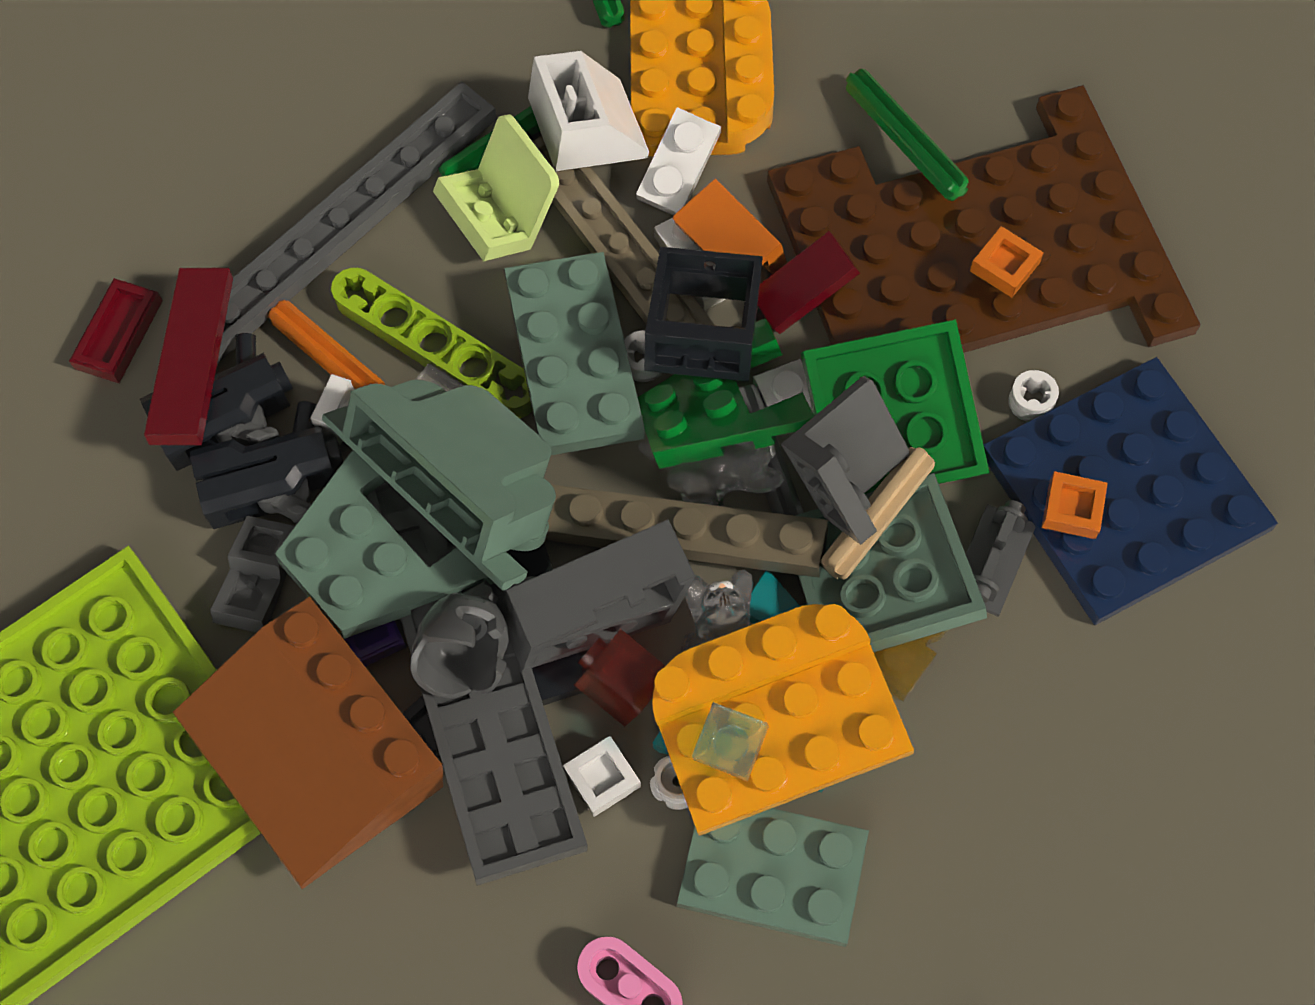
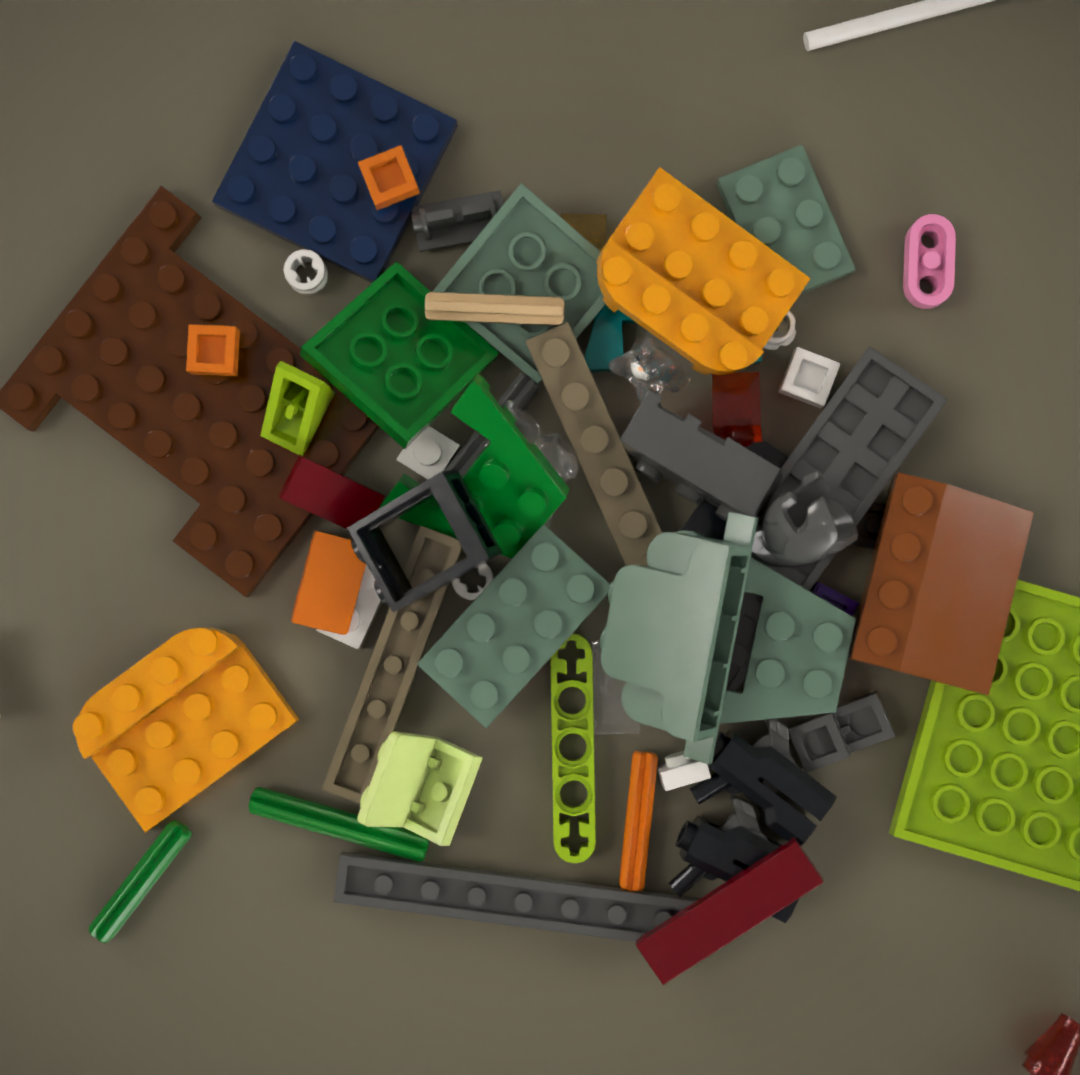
camera: 125 degrees left, 20 degrees up
(116, 330) = (734, 1001): dark red tile -> none
(583, 112) = (304, 769): white slope -> none
(678, 162) = (288, 669): white plate -> none
(730, 741) = (747, 286): clear light blue plate -> none
(846, 454) = (482, 351): dark grey bracket -> none
(907, 135) = (139, 507): green axle -> none
(907, 294) = (295, 408): none -> lime slope

